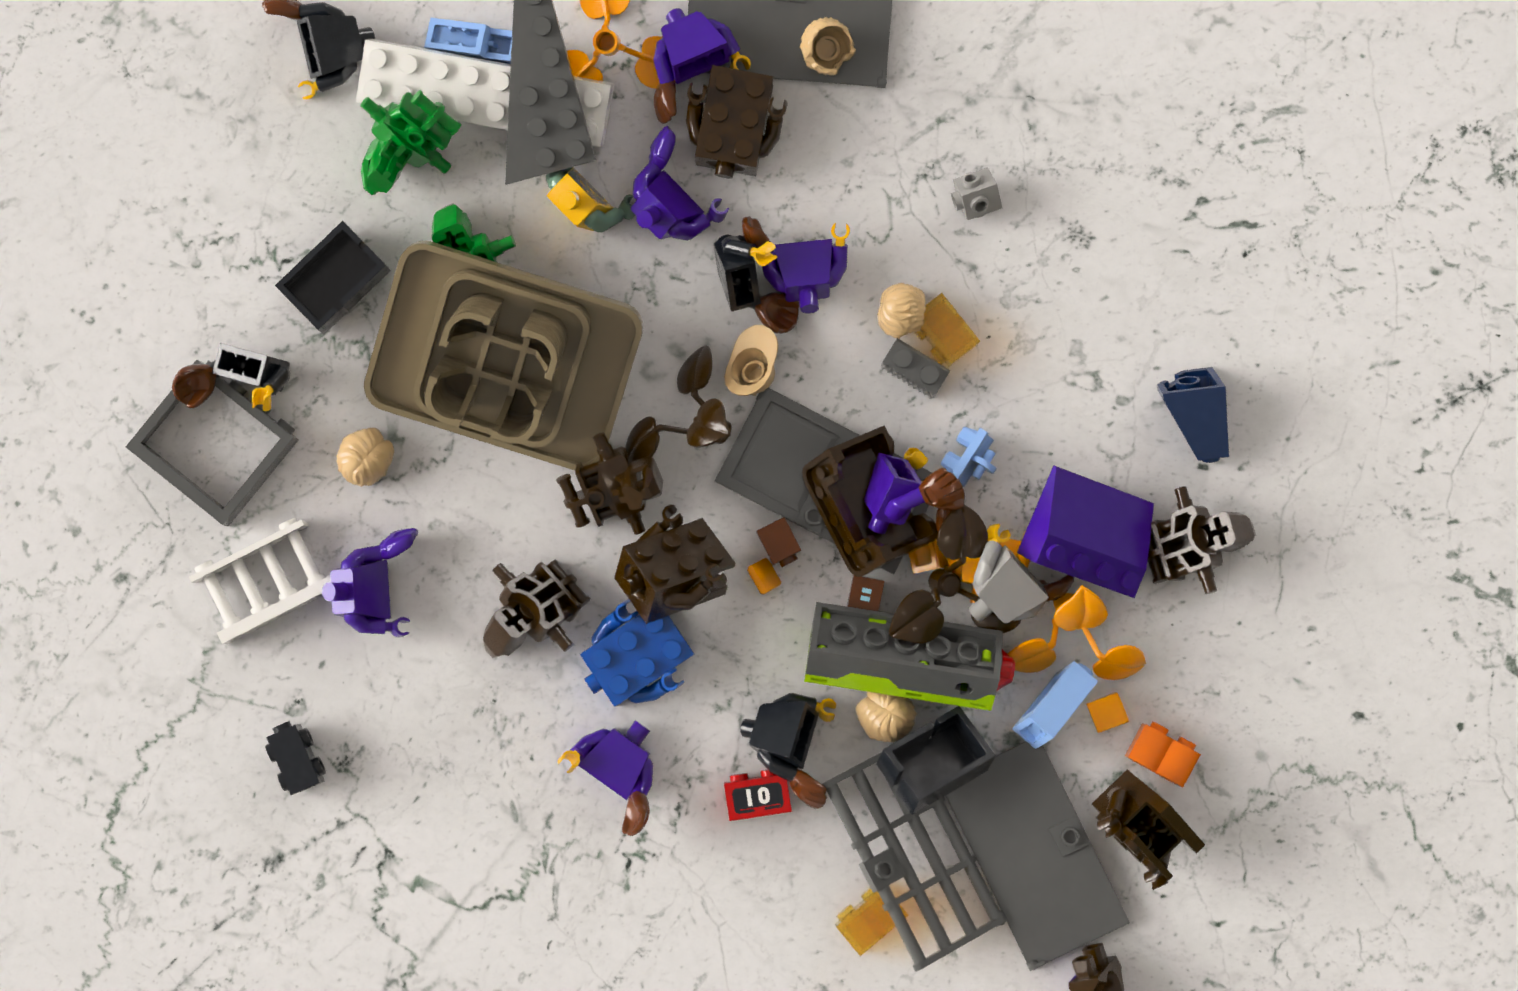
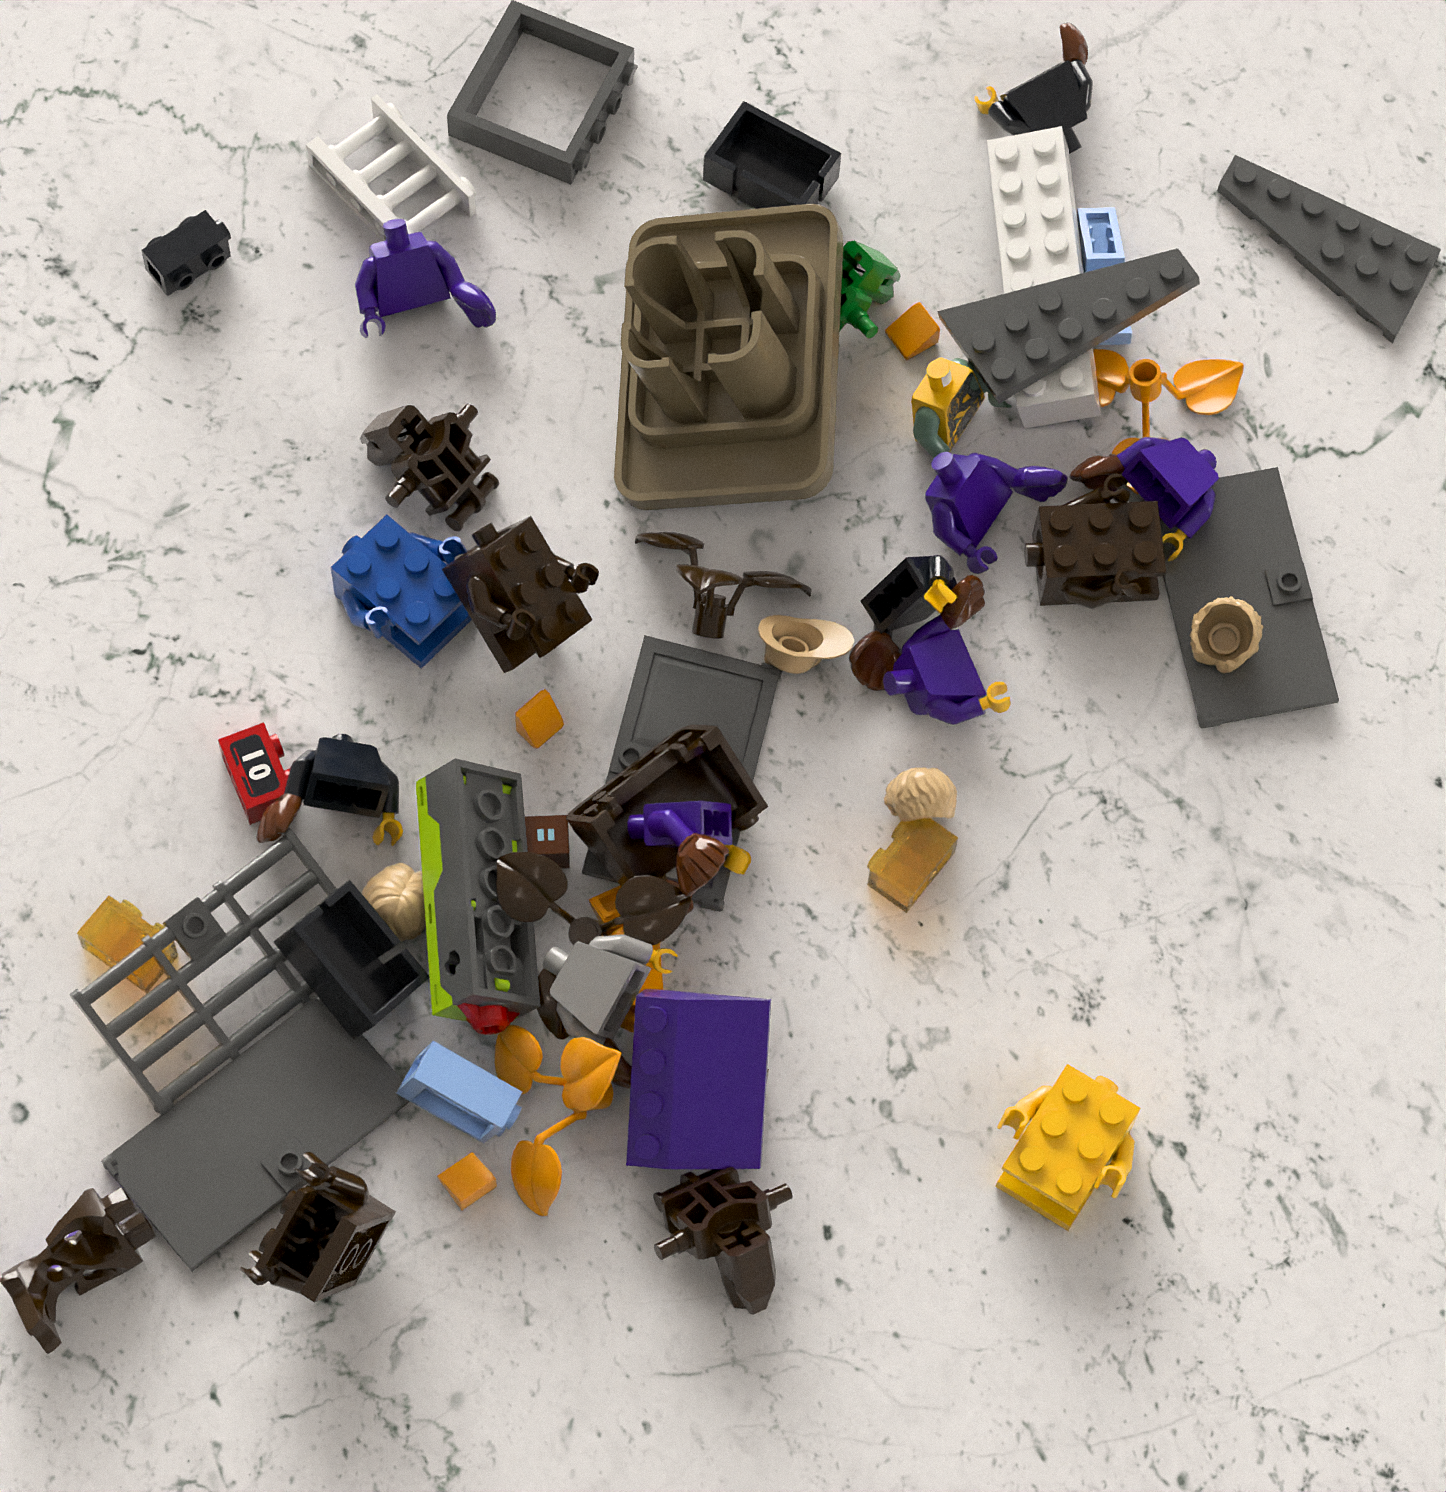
camera: 75 degrees right, 20 degrees down
(197, 381) = (638, 105): torso -> none
(364, 457) = (567, 249): tan hair -> none
(405, 136) = (964, 203): green piece -> none
(502, 206) = (913, 331): none -> light orange slope
(612, 486) = (605, 513): dark brown piece -> none
(621, 766) = (262, 601): dark purple torso -> none
(779, 542) = (587, 726): reddish brown brick -> none
(915, 368) = (851, 834): dark grey brick -> none
(975, 458) = (758, 930): light blue hips -> none
(976, 194) = (1098, 855): light grey brick -> none
(1162, 754) = (427, 1260): orange brick -> none
(1191, 279) = (1069, 1146): none -> yellow torso
(1199, 410) = (895, 1194): dark blue slope -> none

